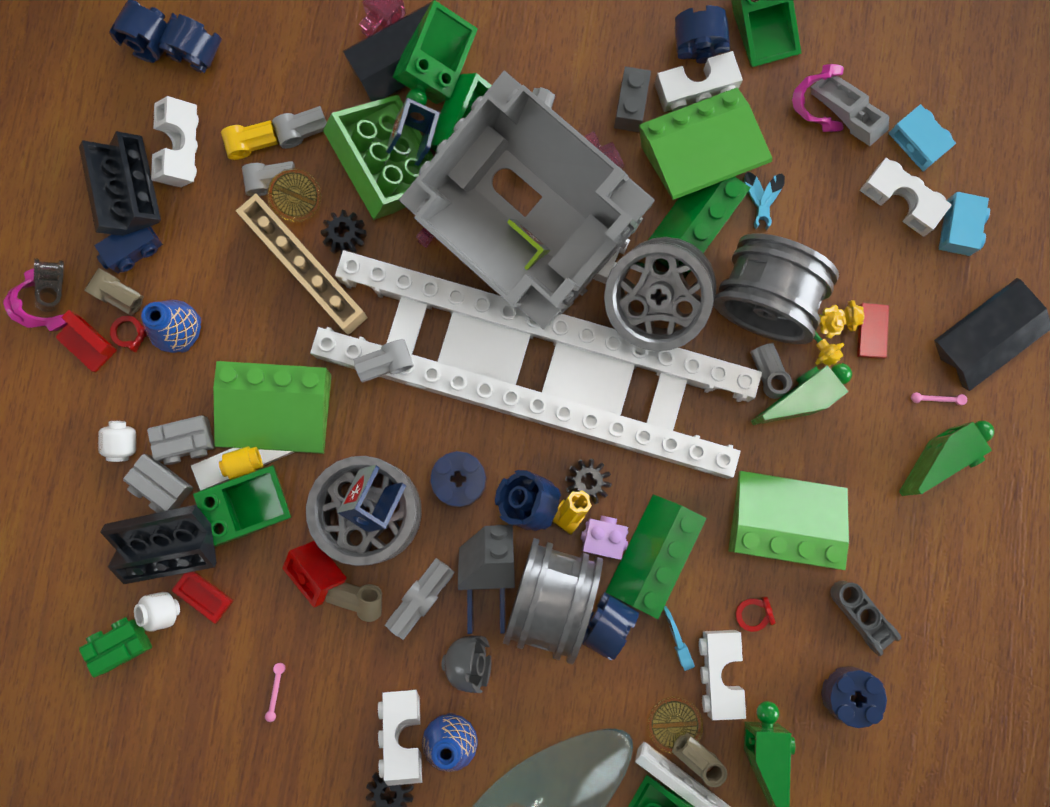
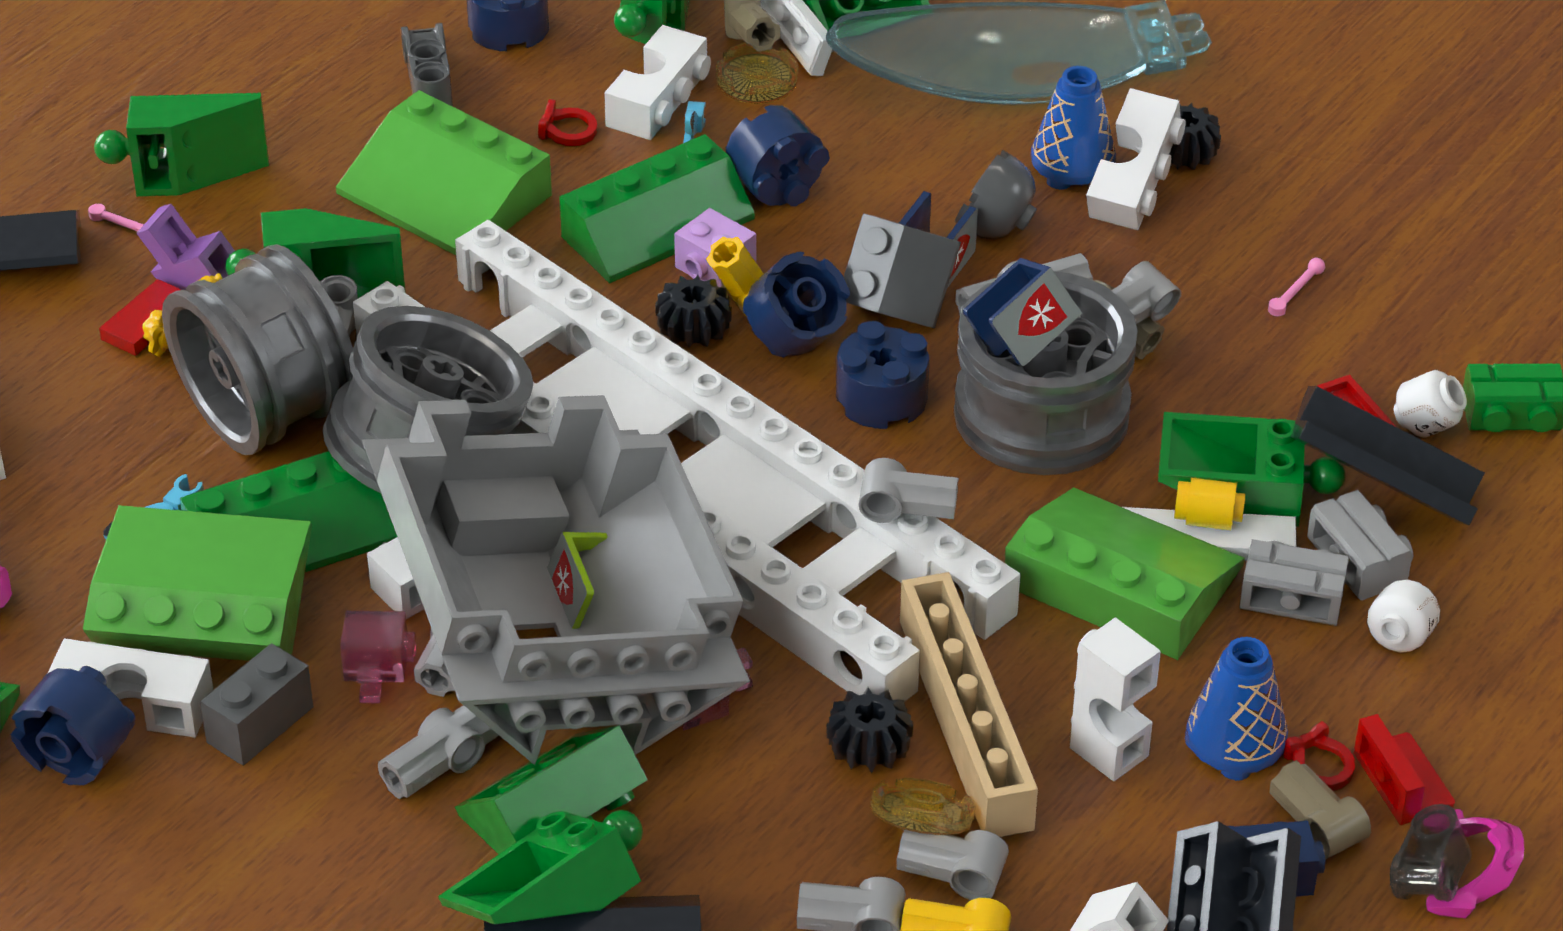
camera: 150 degrees left, 40 degrees down
(222, 281) = (1111, 675): none -> white arch
(312, 572) = (1167, 362): red panel -> none
(338, 602) = (1148, 292): none -> light grey piece
(361, 142) = (730, 804): bright green slope -> none
(426, 126) = (662, 786): dark blue piece -> none
(554, 601) = (826, 162): flat silver wheel -> none
(880, 375) = (179, 253): none -> medium lavender brick

